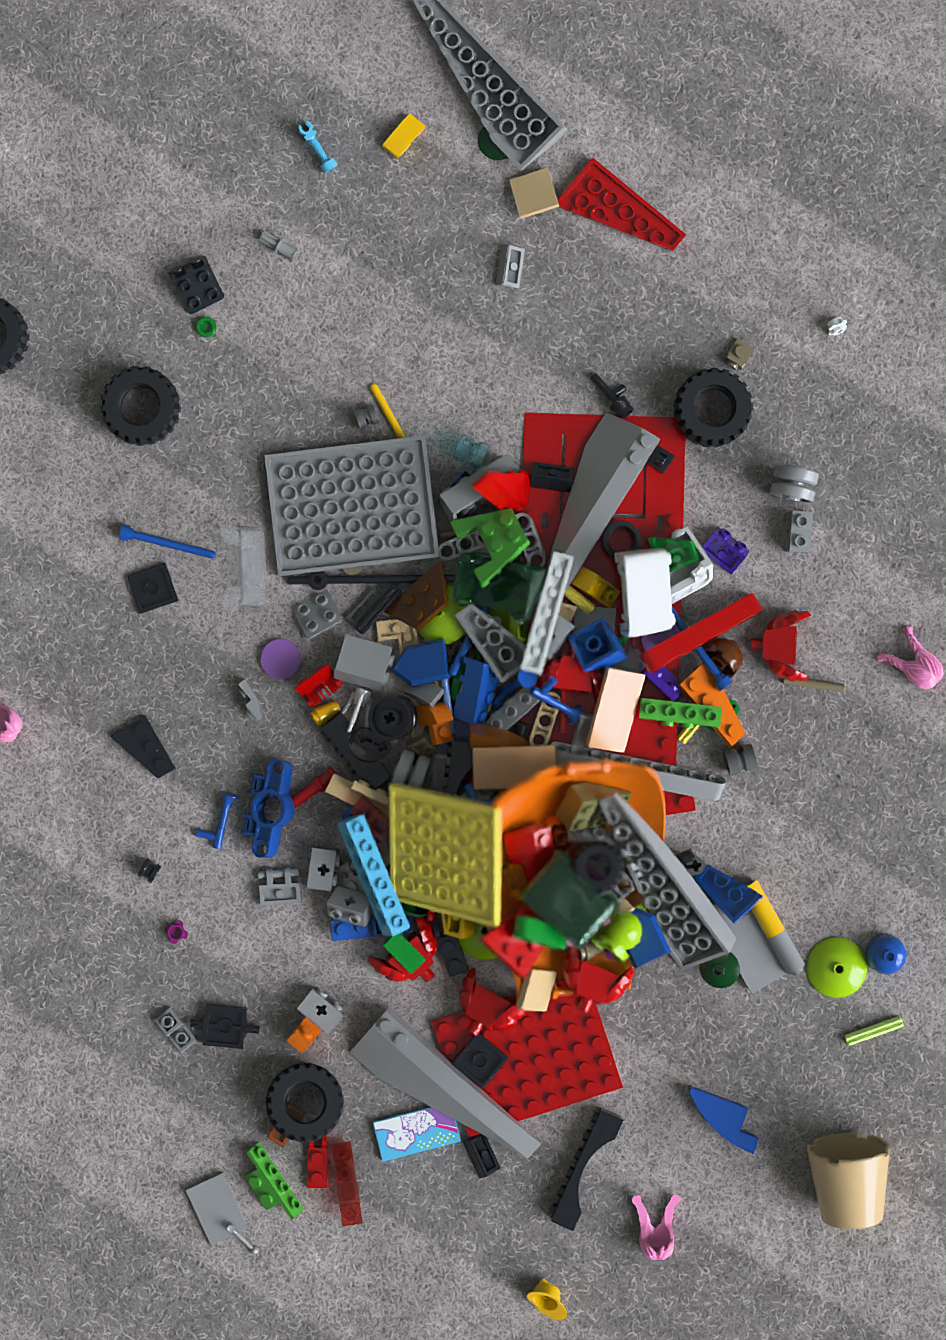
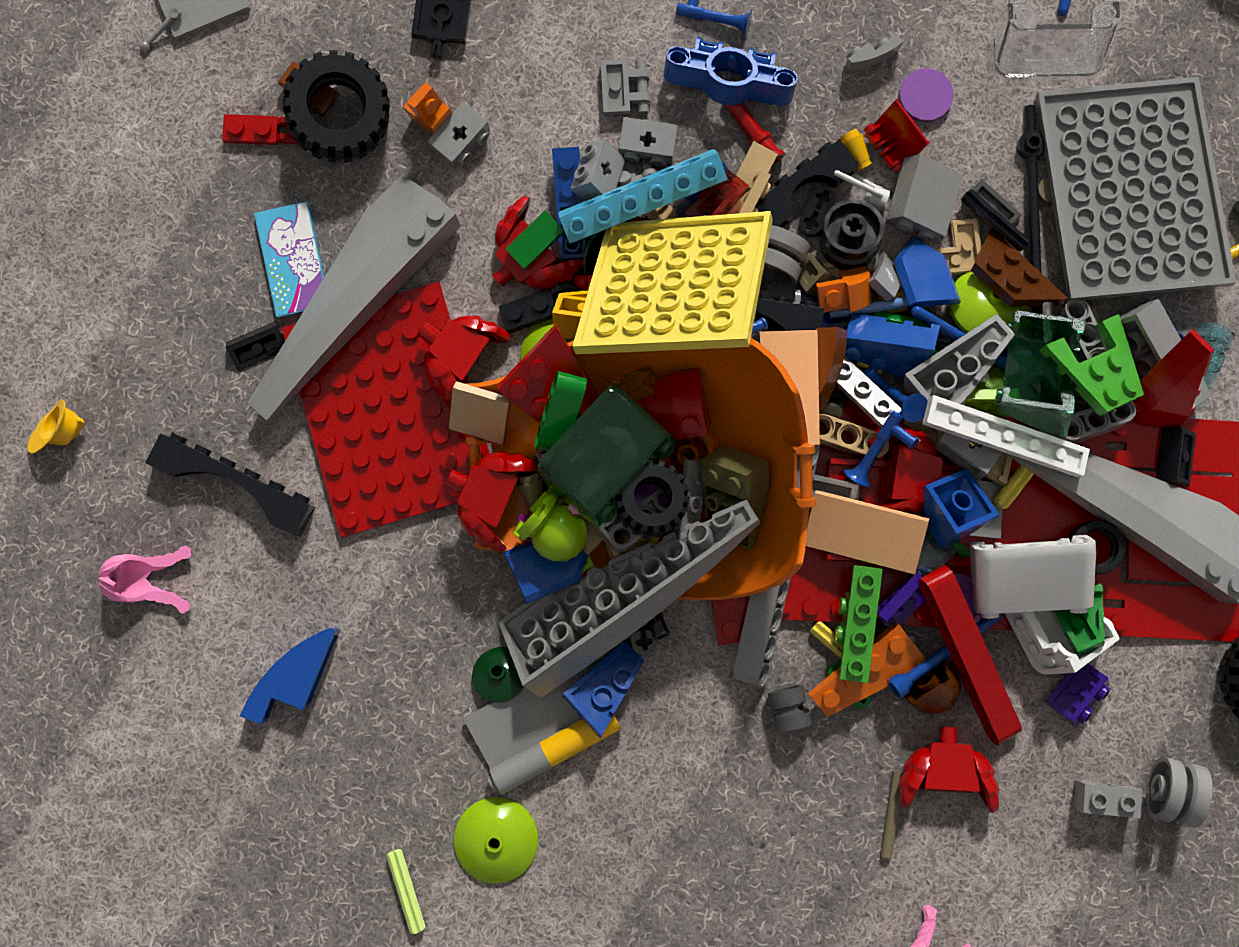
camera: 90 degrees right, 5 degrees down
(270, 1184) = (232, 67): bright green bracket -> none
(317, 614) = (986, 143): light grey hinge -> none
(347, 1183) = (226, 166): clear red slope -> none
(480, 1060) = (384, 343): black tile -> none
(596, 587) = (1031, 511): yellow slope -> none
(660, 459) = (1203, 606): black tile -> none
(850, 1178) = (196, 854): tan cone -> none
(885, 954) = (512, 911): blue cylinder -> none

